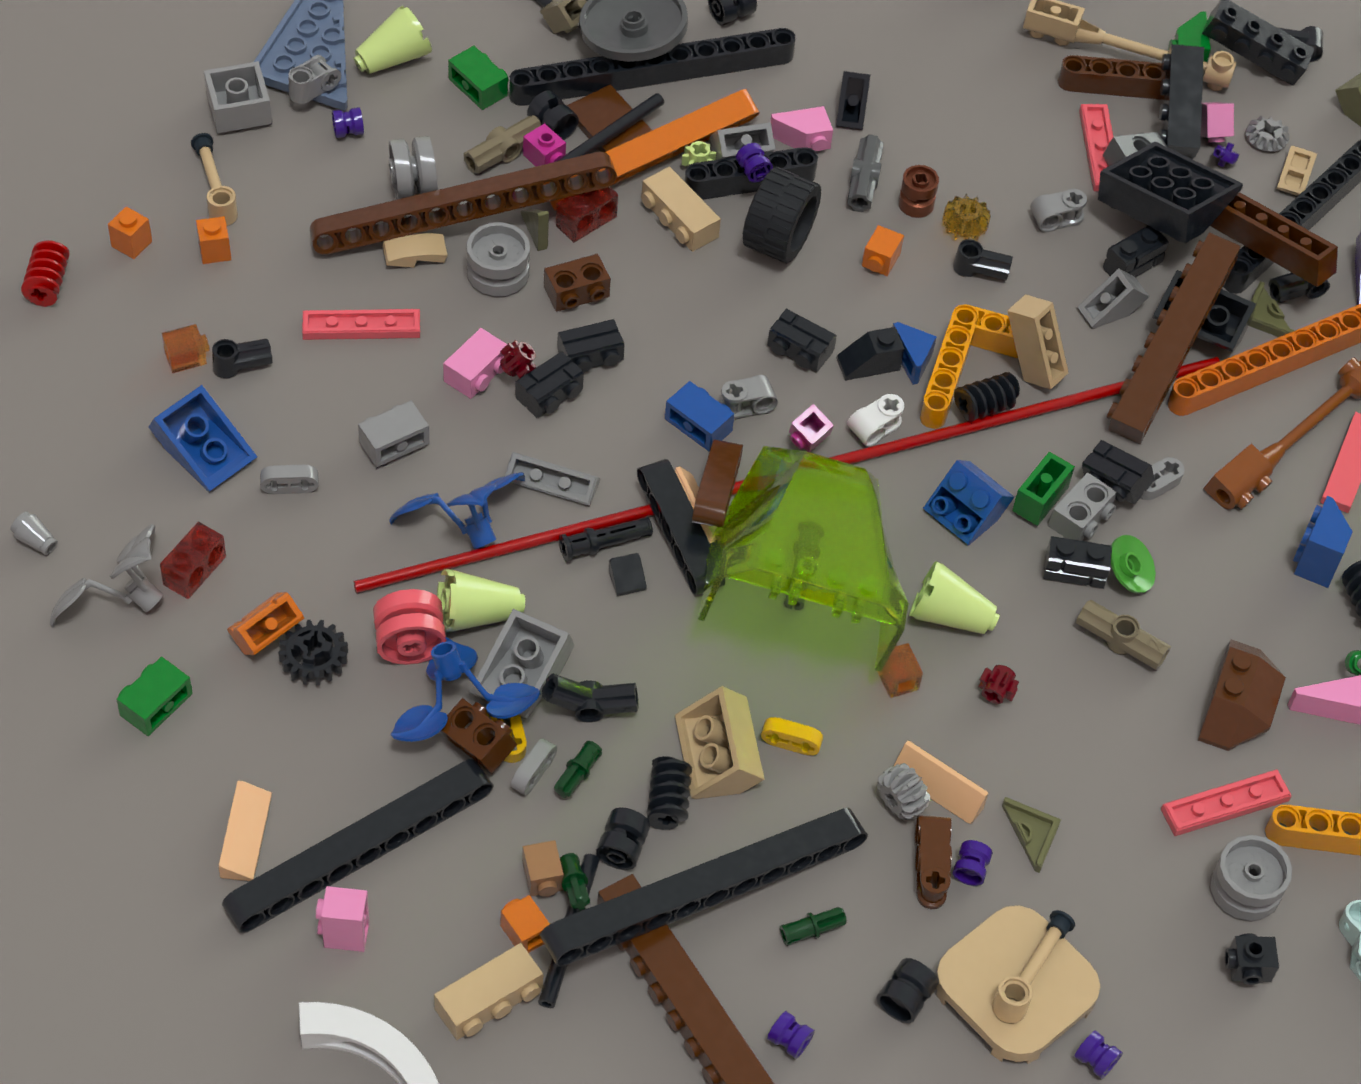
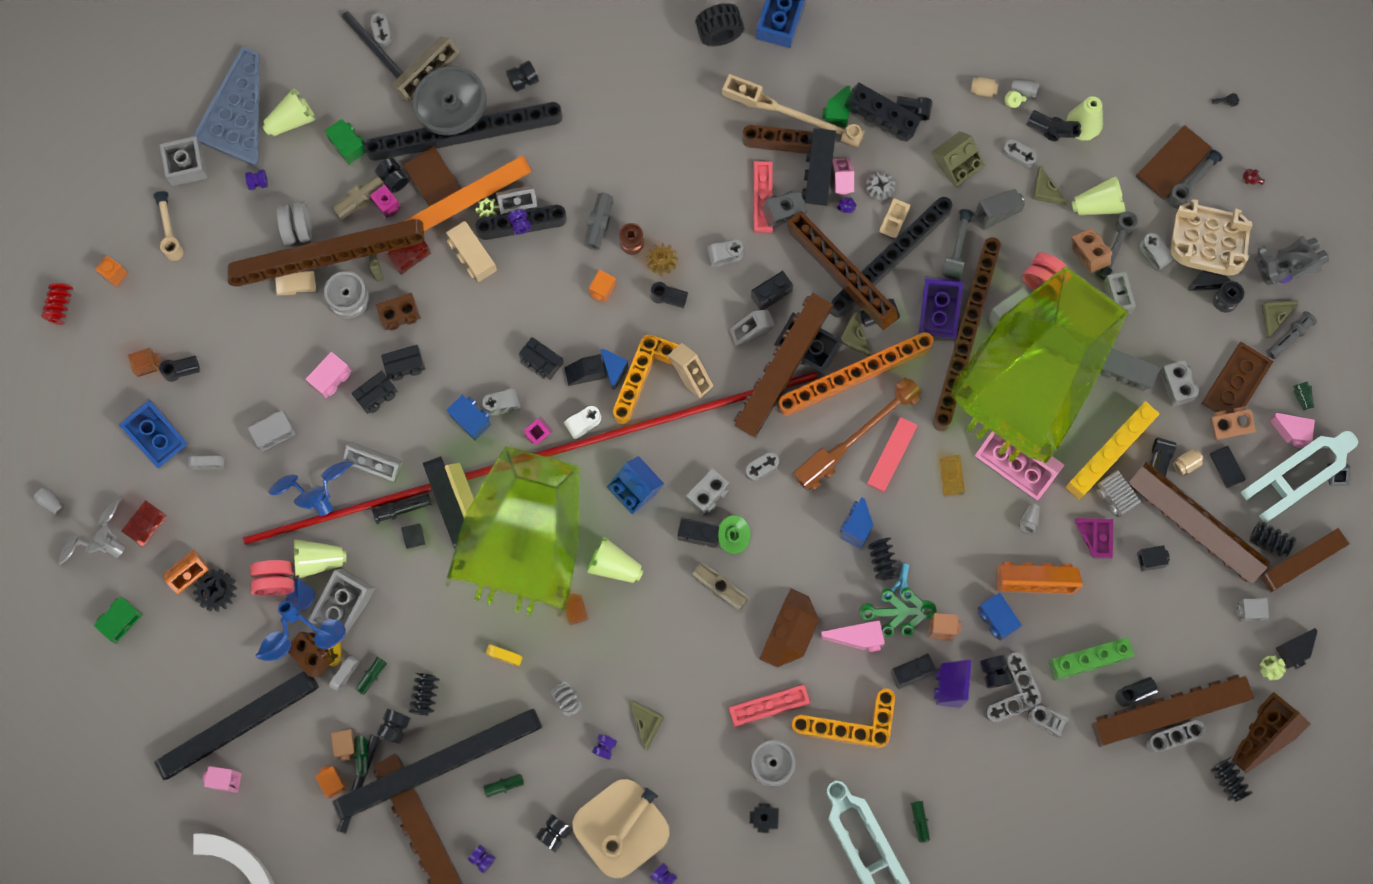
camera: 10 degrees right, 20 degrees up
(213, 240) = (164, 277): orange brick -> none
(244, 832) = (169, 713): light nougat slope -> none
(310, 79) = (233, 147): light grey piece -> none
(361, 324) = (258, 341): coral tile -> none
(489, 992) = (306, 826): tan brick -> none
(517, 359) = (353, 377): dark red gear -> none
(590, 698) = (381, 627): black piece -> none
(617, 127) = (429, 189): black piece -> none
(717, 483) = (471, 476): reddish brown beam -> none
(719, 744) = (458, 661): tan slope -> none
(781, 214) = (533, 265): black tyre -> none
(803, 128) = (561, 185): bright pink slope -> none
(853, 100) = (597, 158): black slope -> none
(933, 860) = (581, 741): reddish brown piece -> none
(945, 784) = (591, 690): light nougat slope -> none
(987, 396) = (656, 405): black piece -> none
(998, 684) = (636, 621): dark red gear -> none
(1043, 488) = (683, 478): green brick -> none
(1120, 471) = (733, 466): black brick -> none
(1167, 191) = (795, 249): black slope -> none

